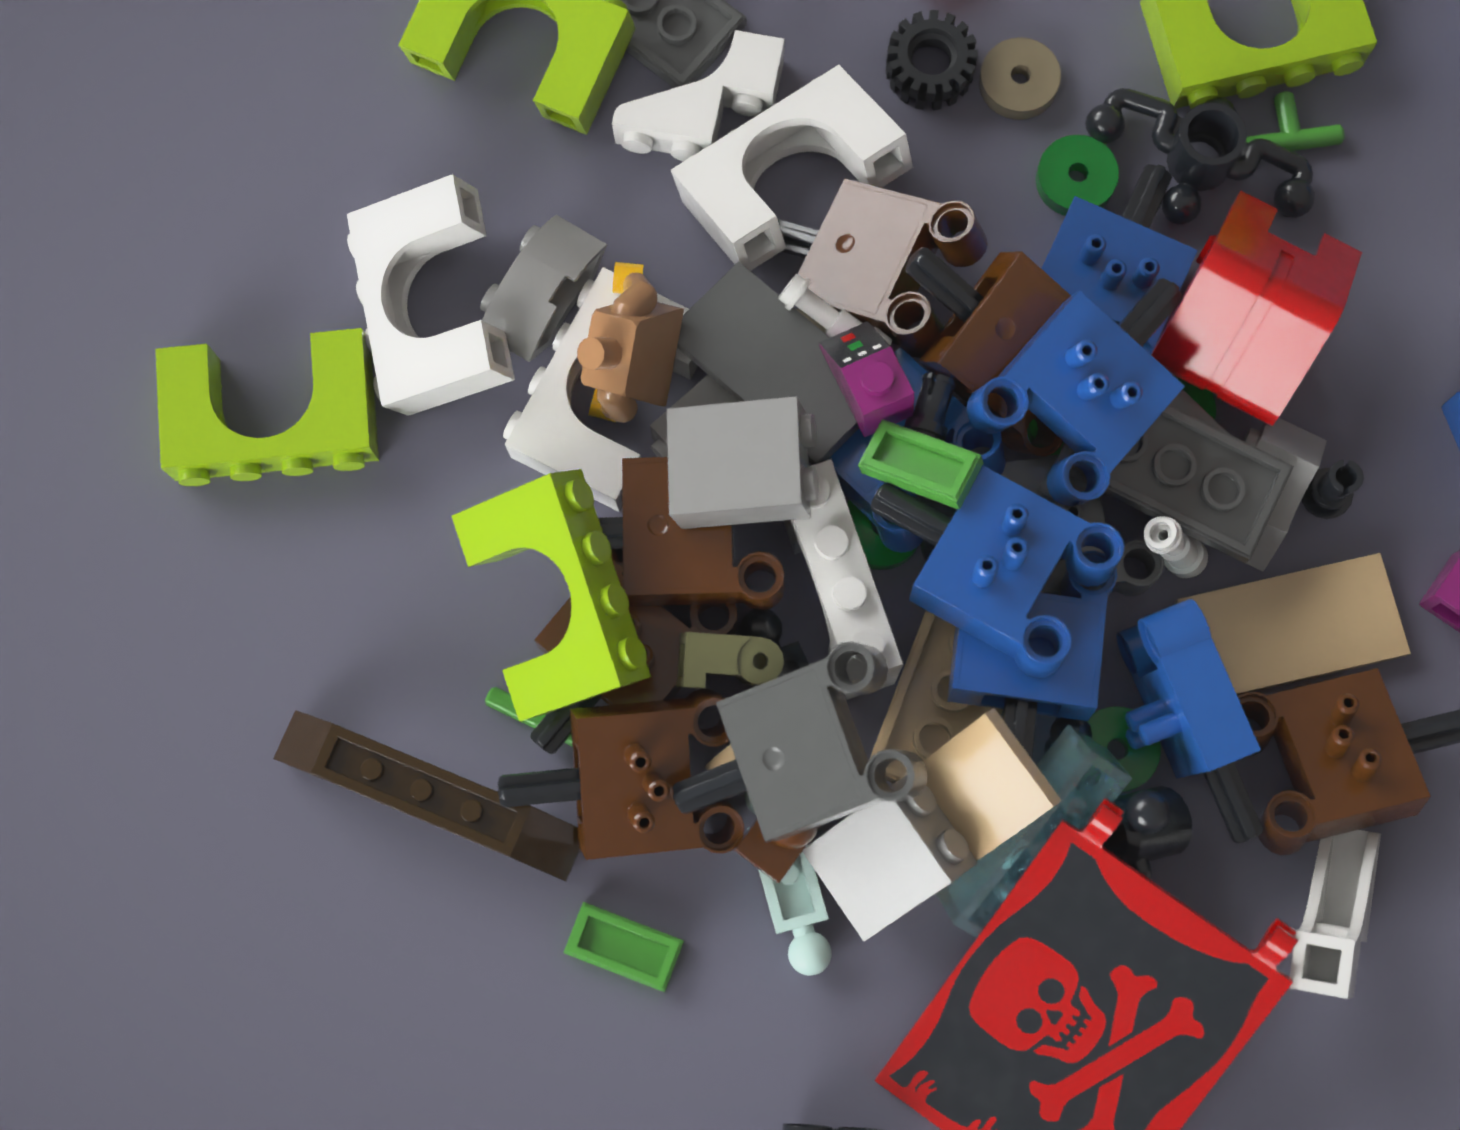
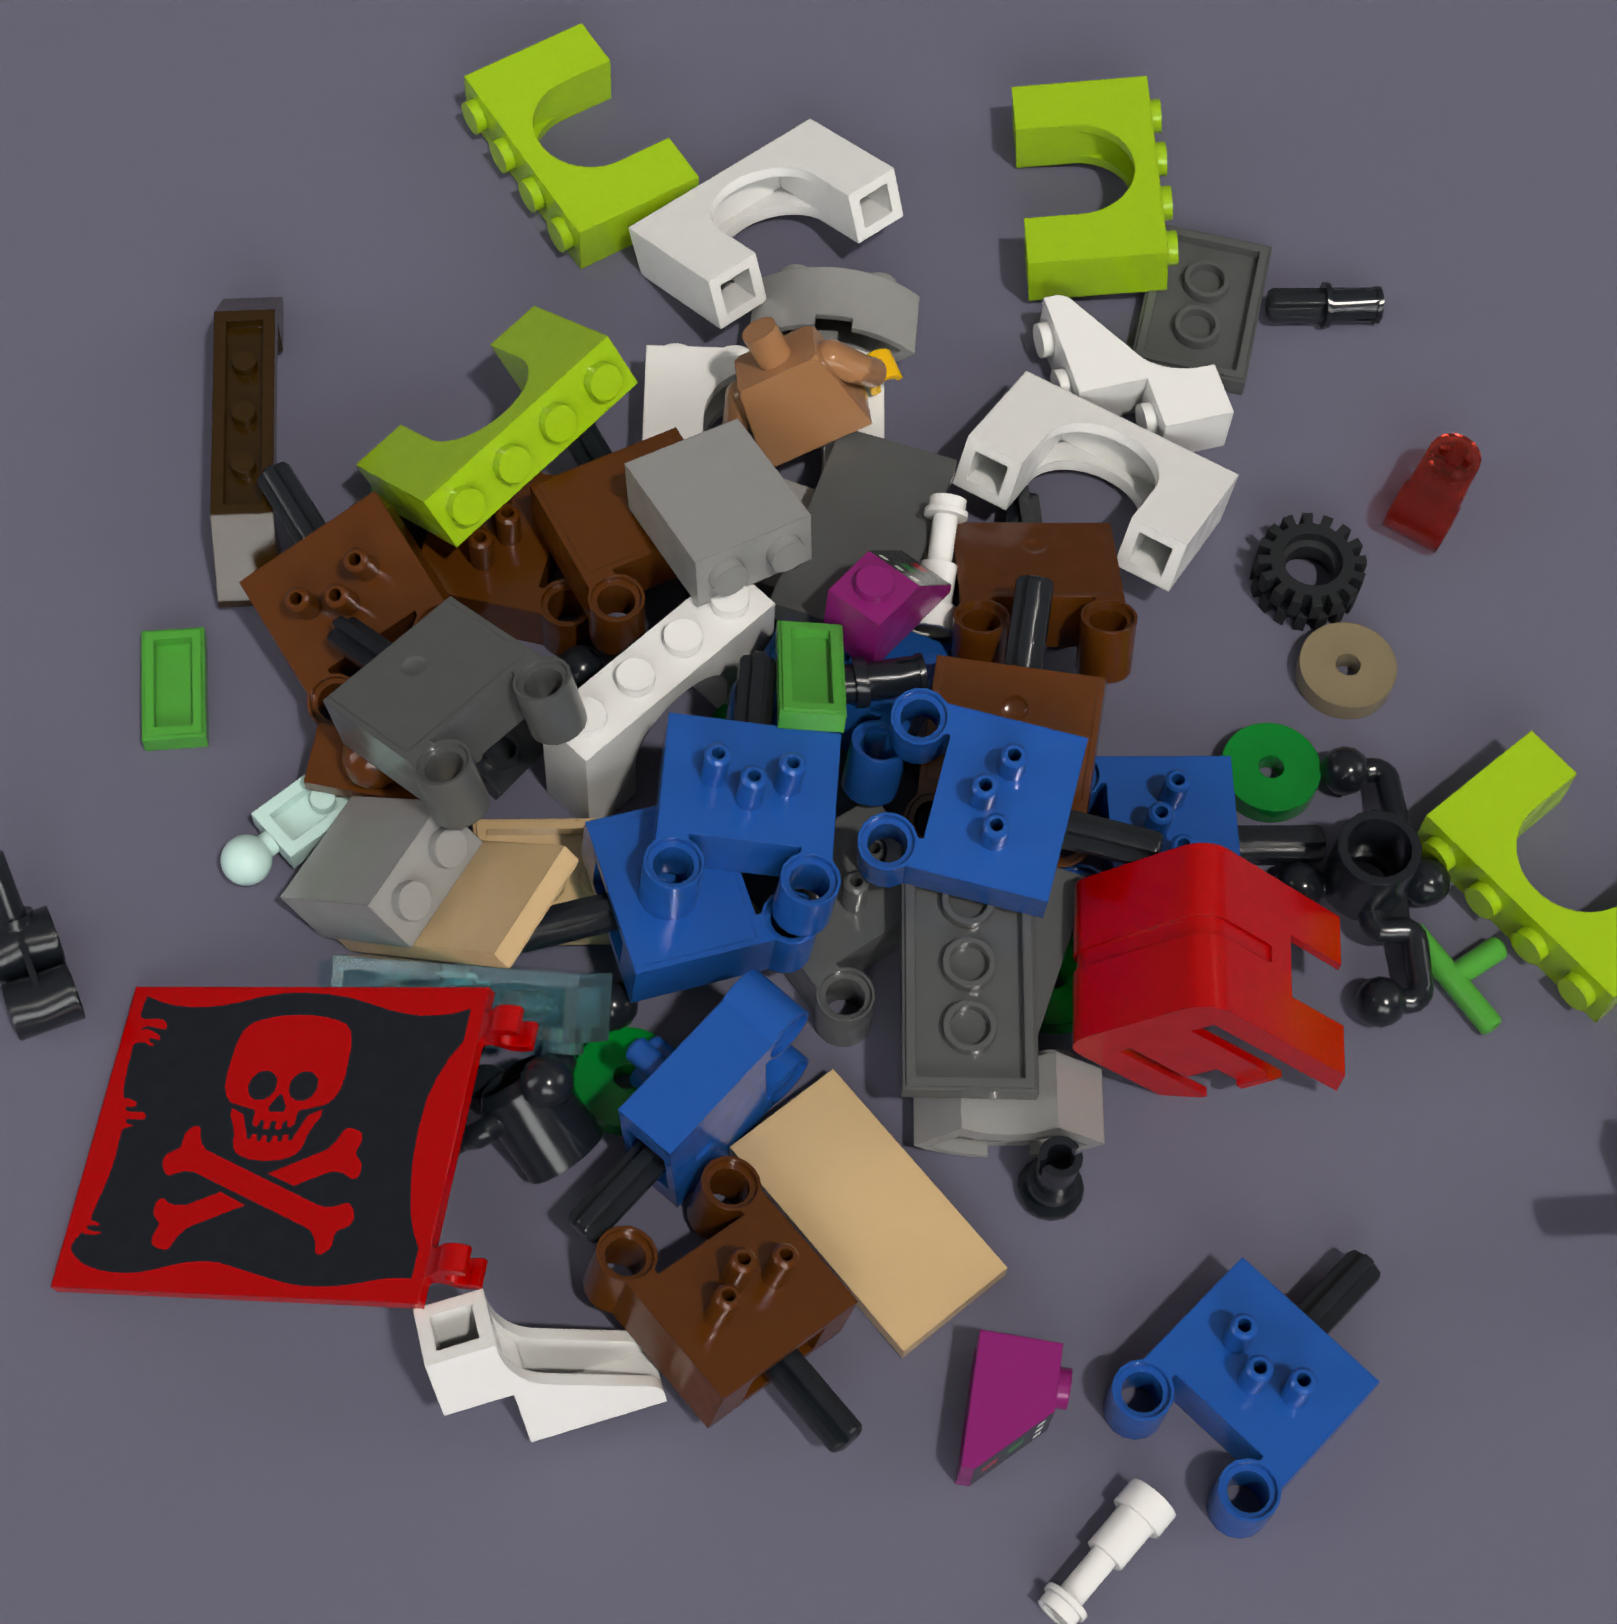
camera: 55 degrees right, 15 degrees down
(745, 657) = (515, 605): olive leg -> none
(1181, 553) = (876, 976): white piece -> none

